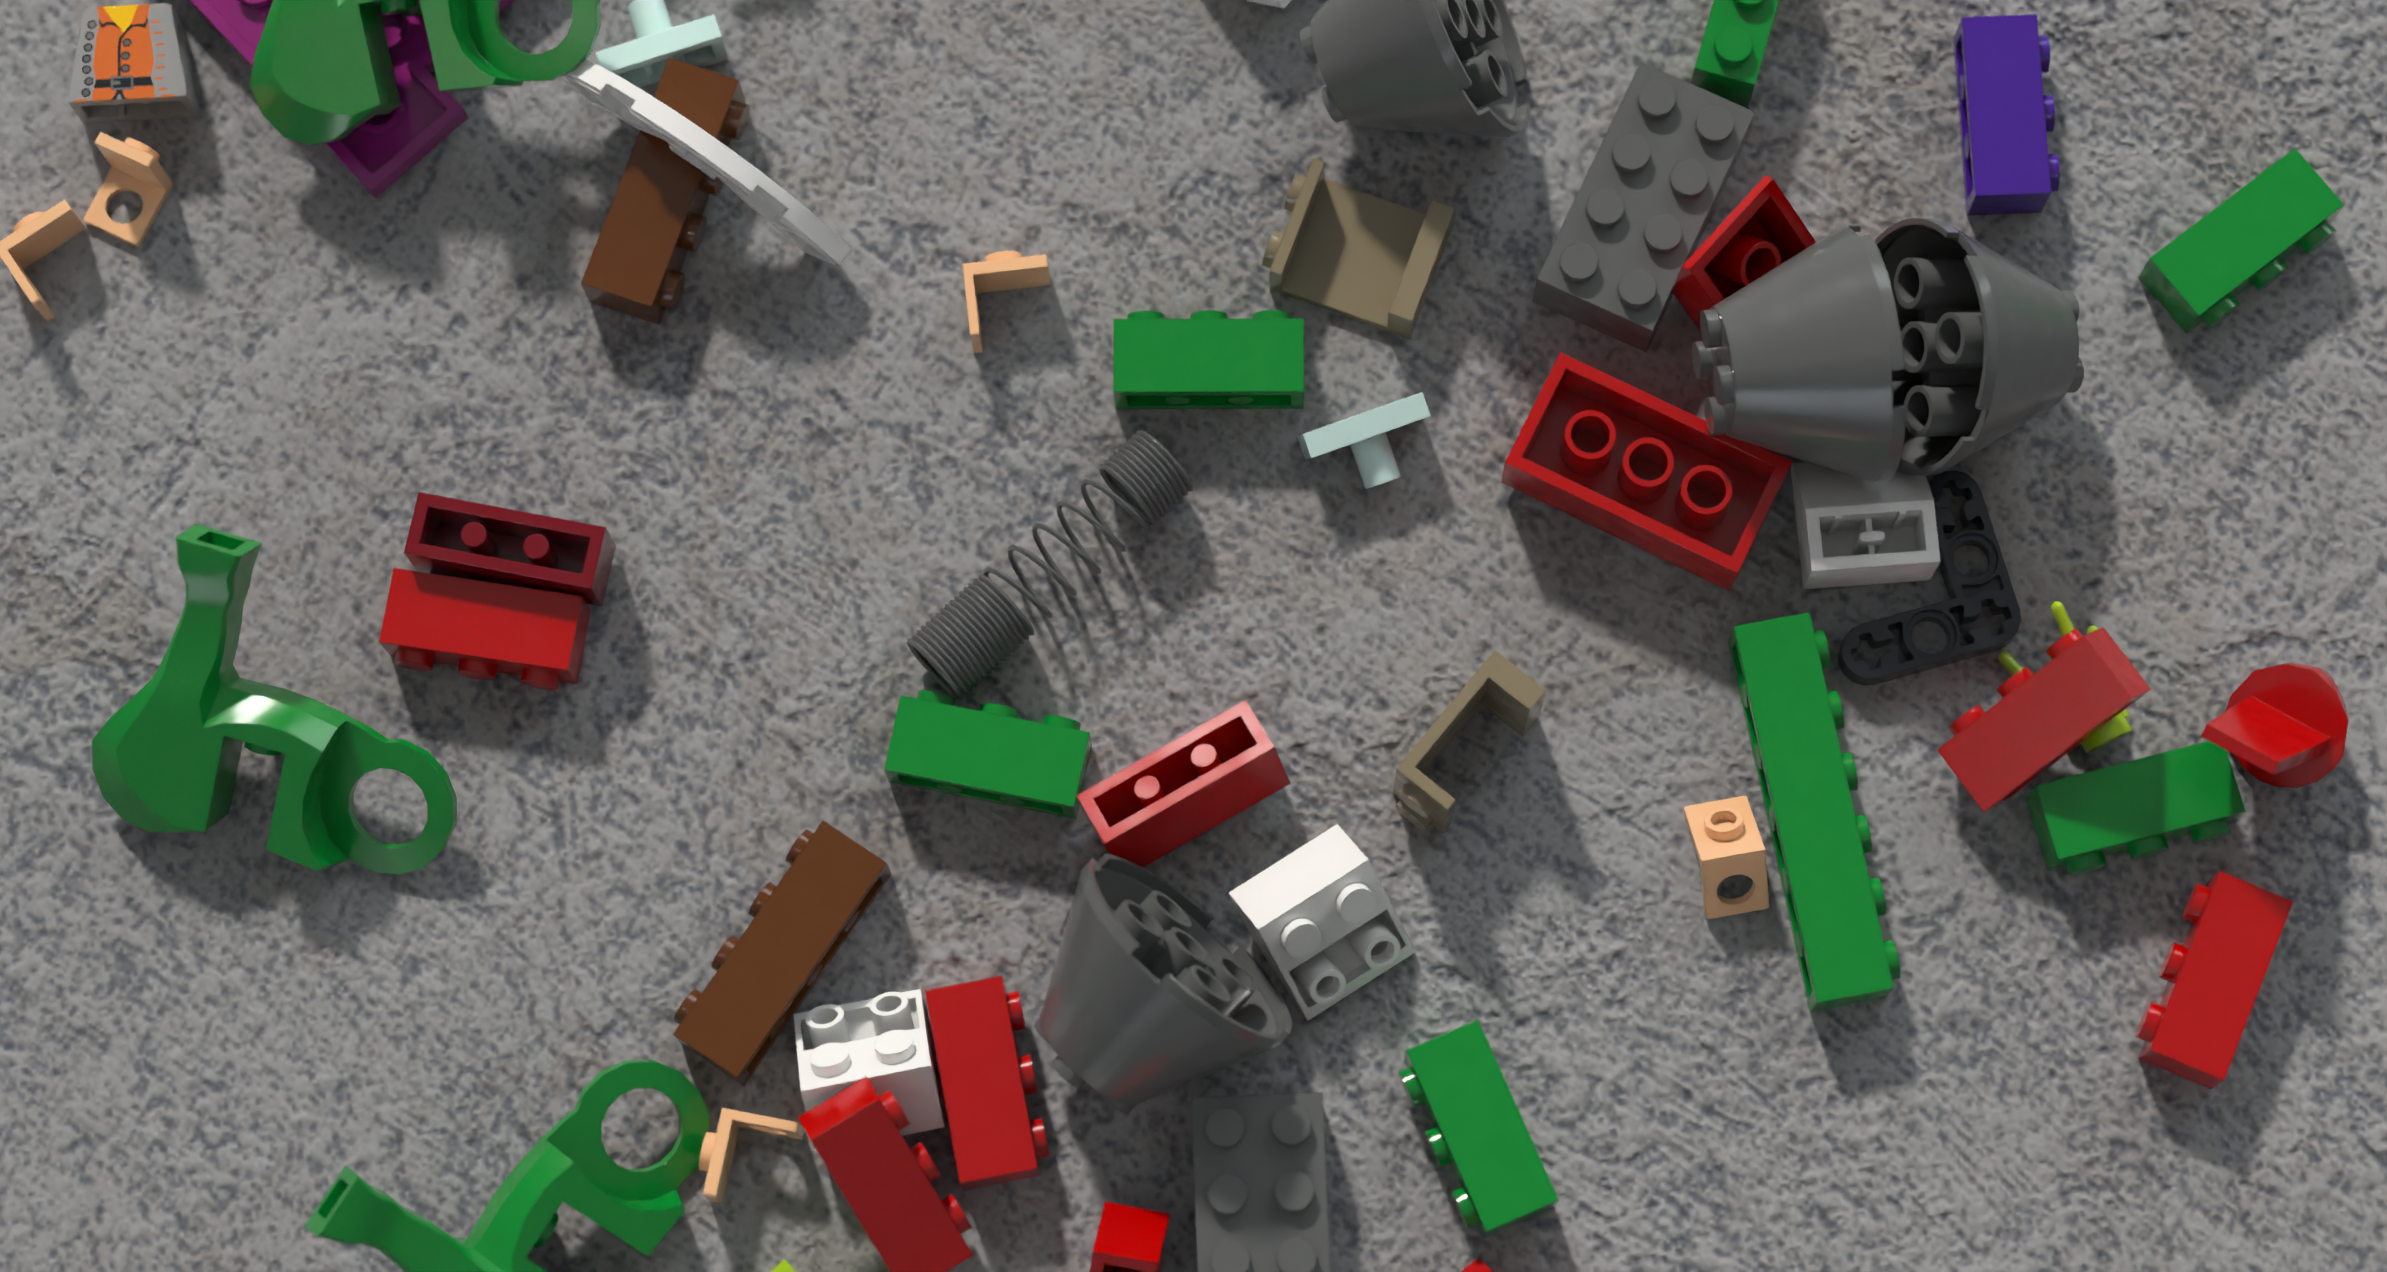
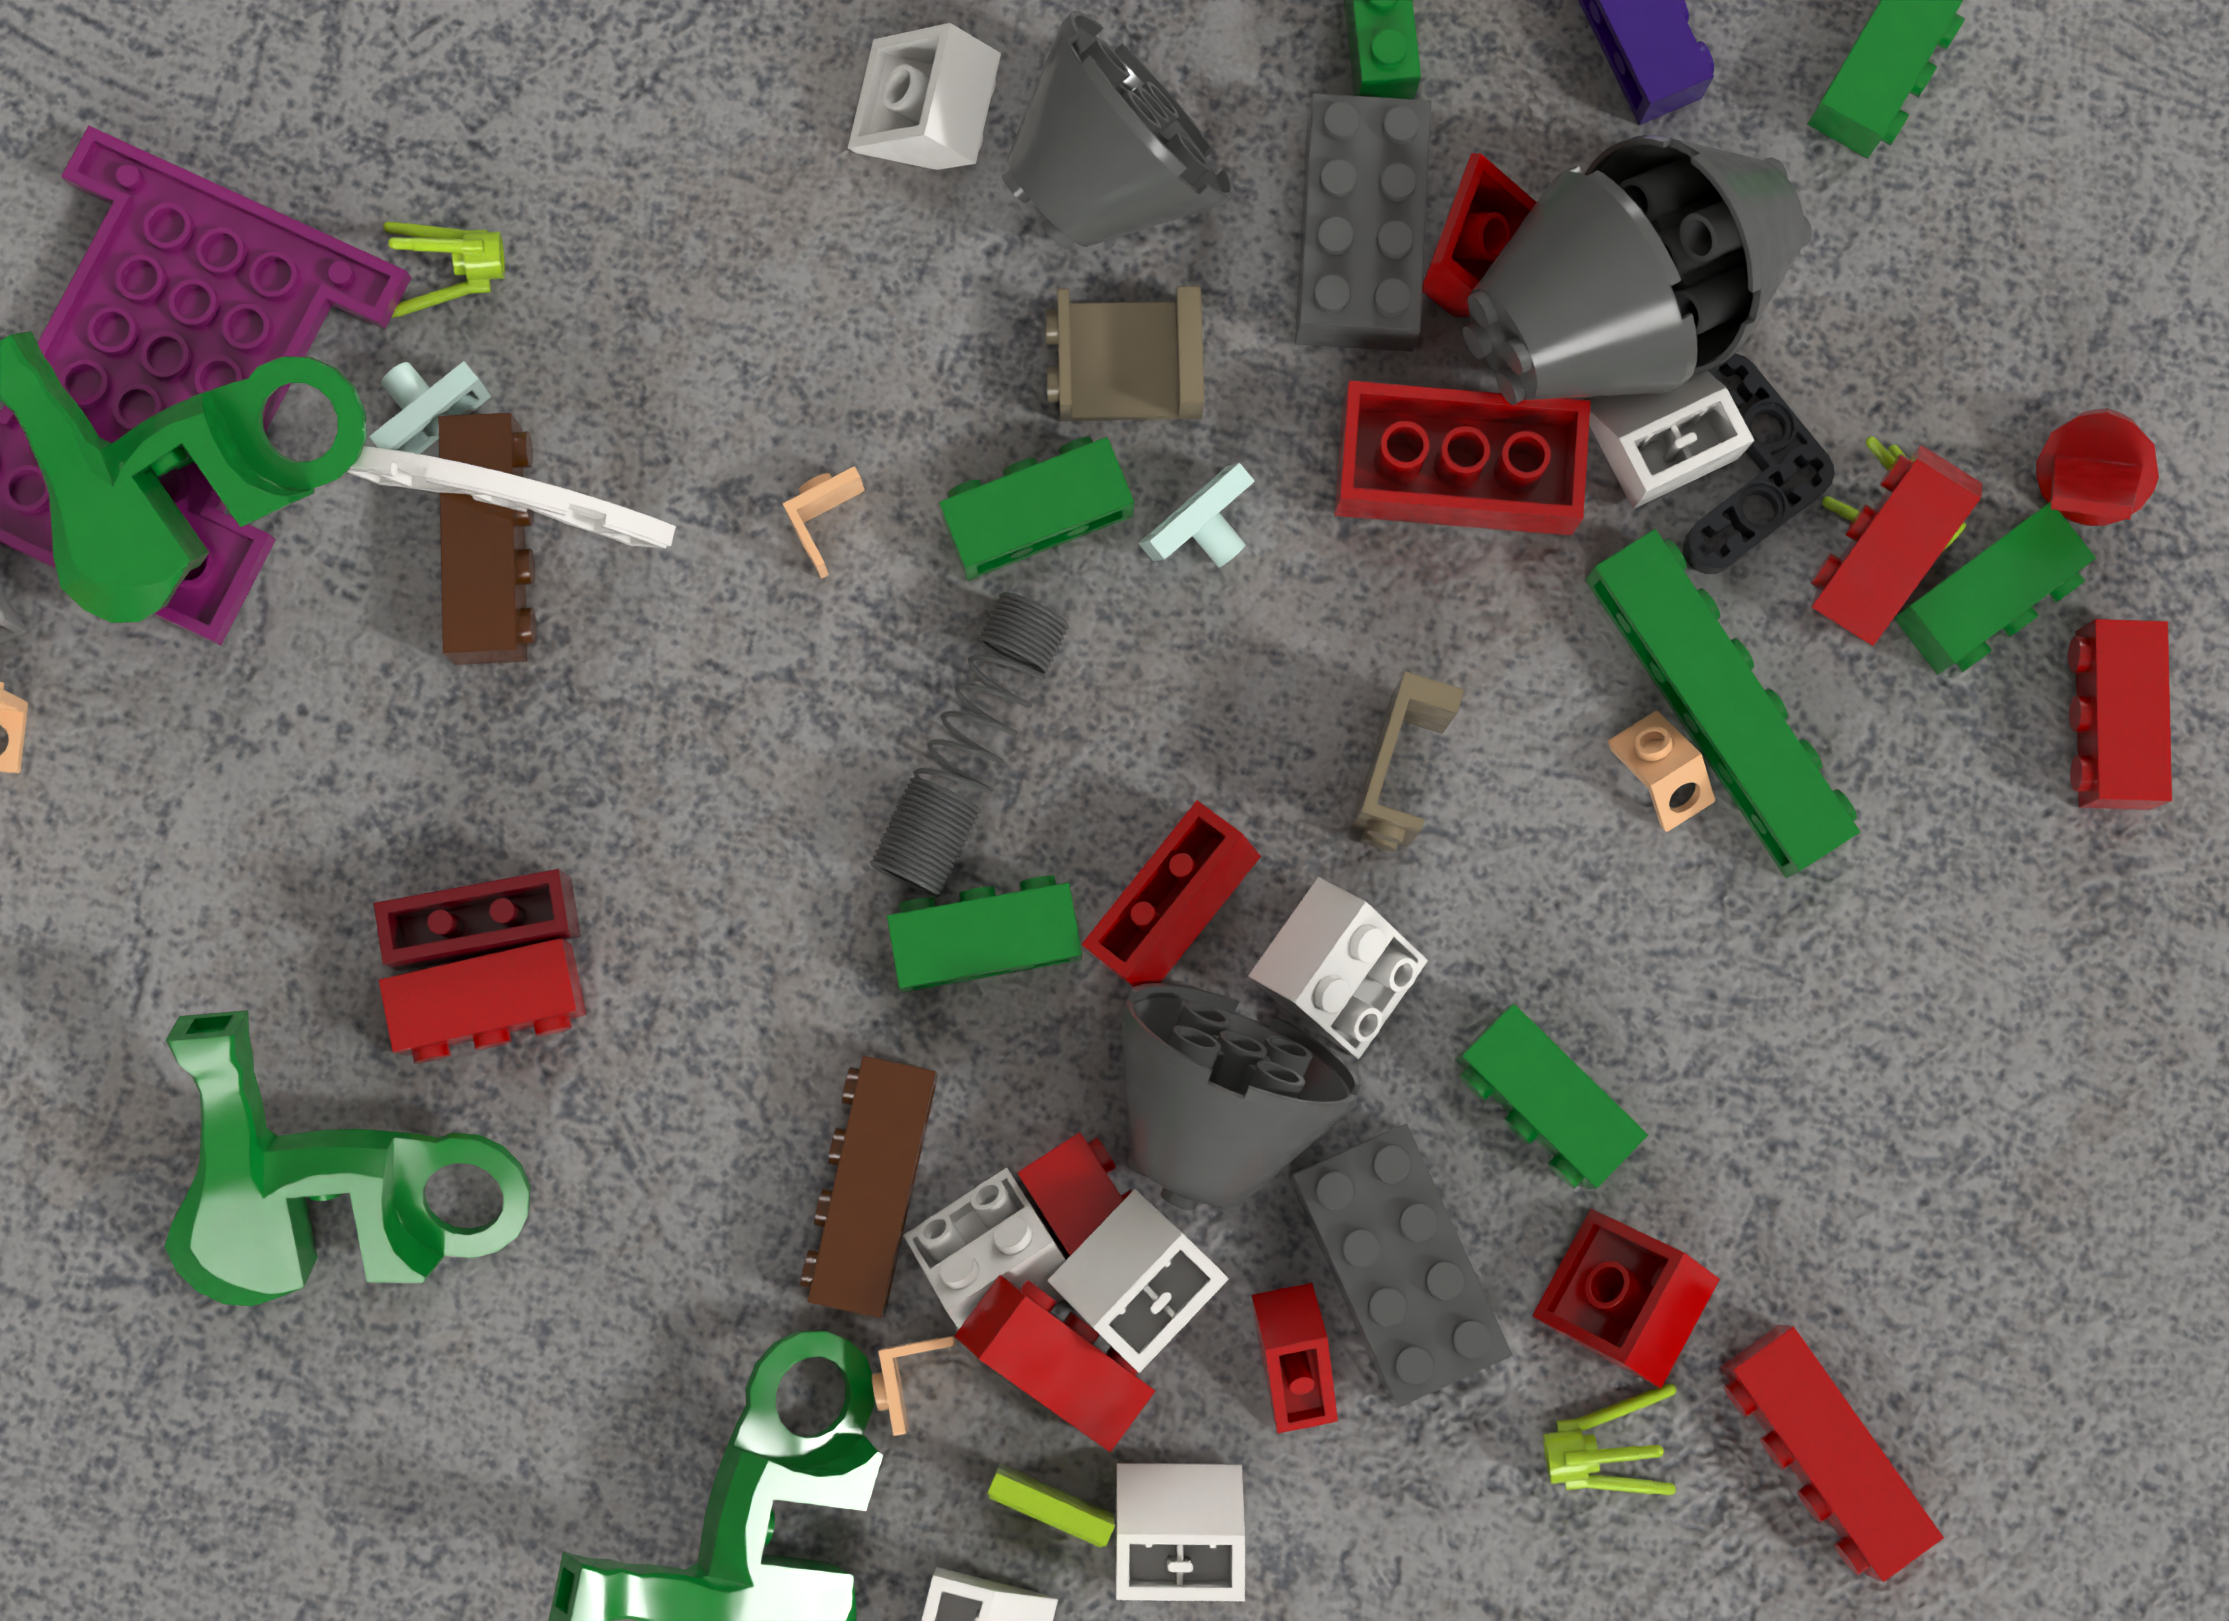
camera: 30 degrees left, 5 degrees up
(996, 1136) = (1137, 1280): none -> white slope

